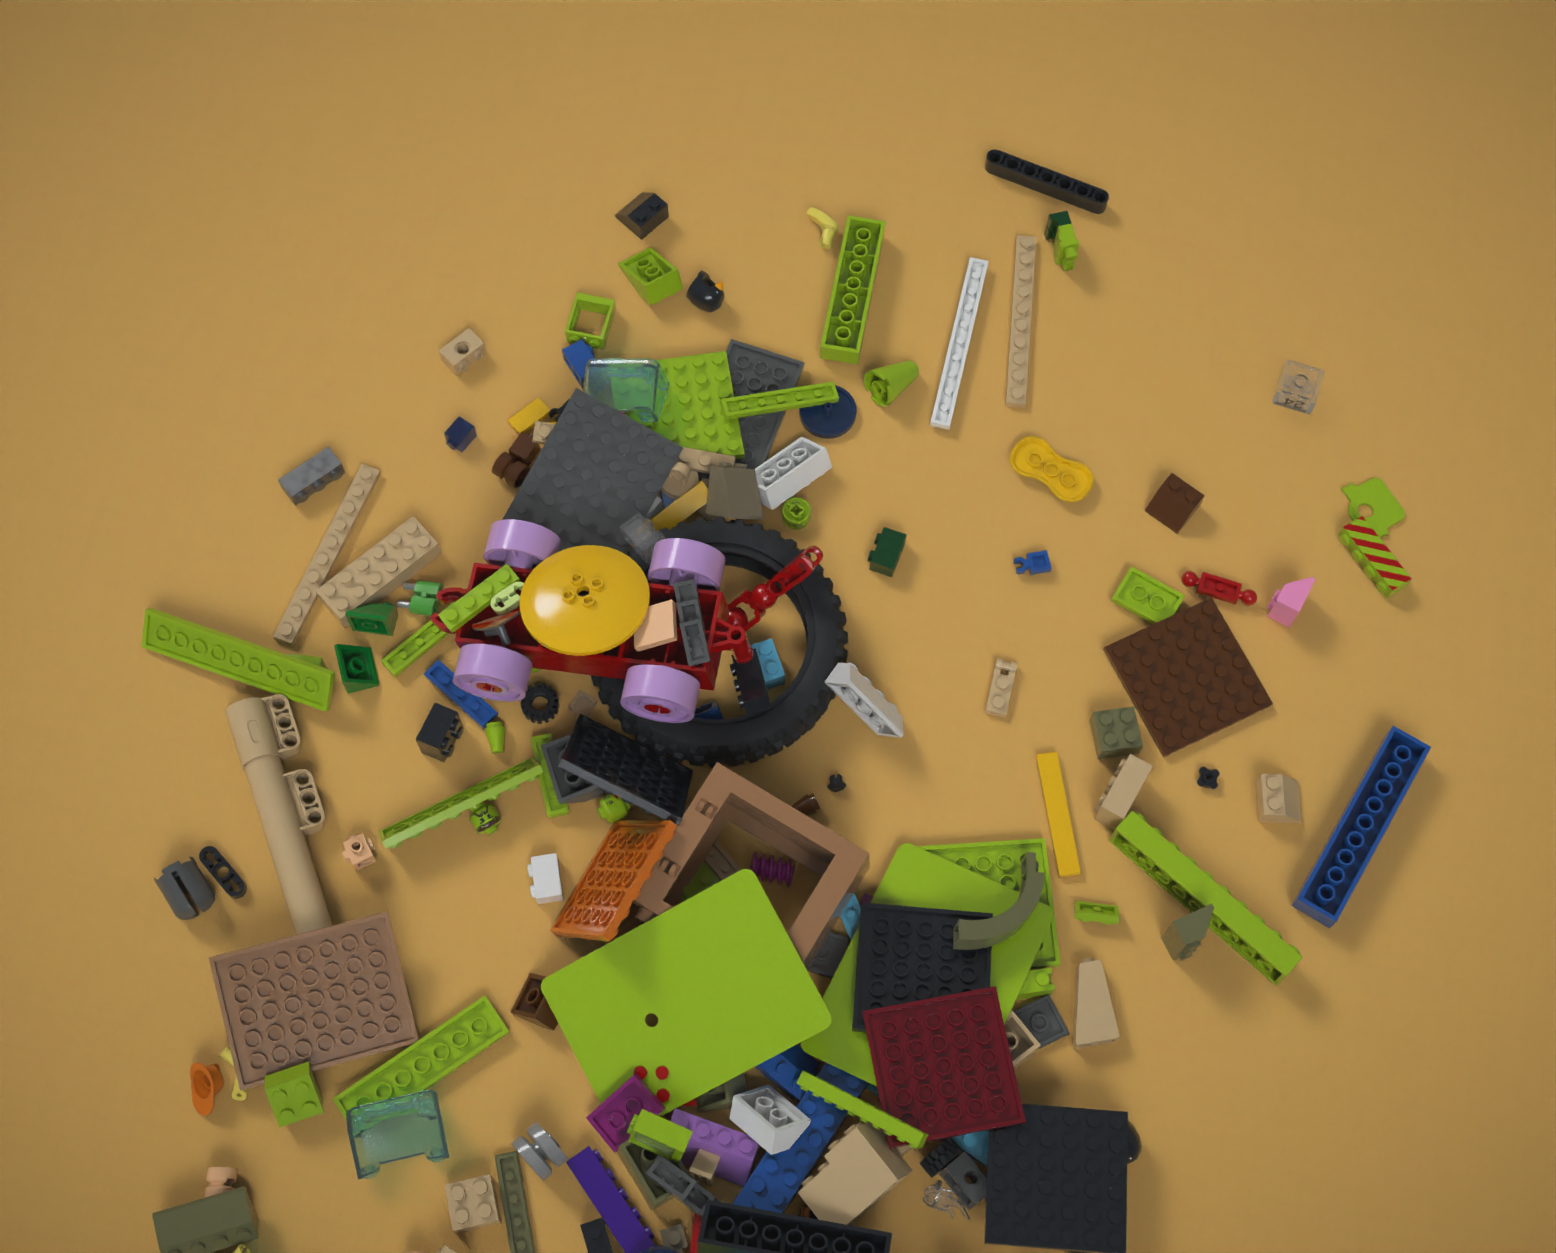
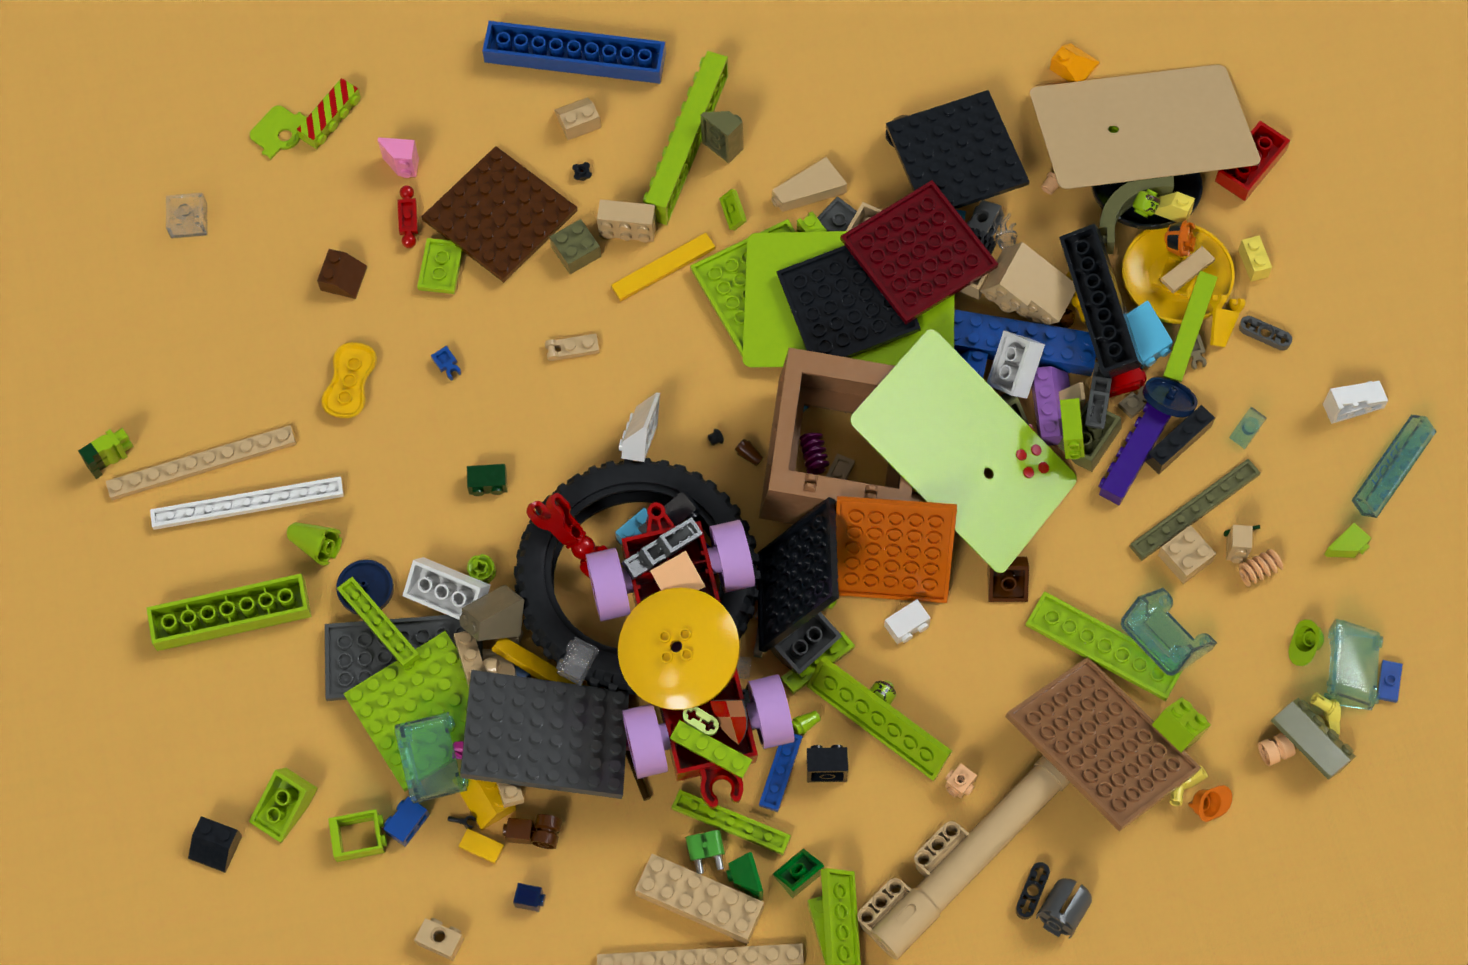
camera: 110 degrees left, 0 degrees up
(542, 1148) = (1125, 520): light grey wheel -> none
(617, 1111) = (1062, 474): magenta plate -> none
(705, 293) = (286, 740): black piece -> none
(826, 223) = (162, 668): light yellow arm -> none
(864, 1110) = (979, 295): lime piece -> none
(991, 931) = (768, 251): olive arch -> none
(1034, 178) = (42, 501): black beam -> none

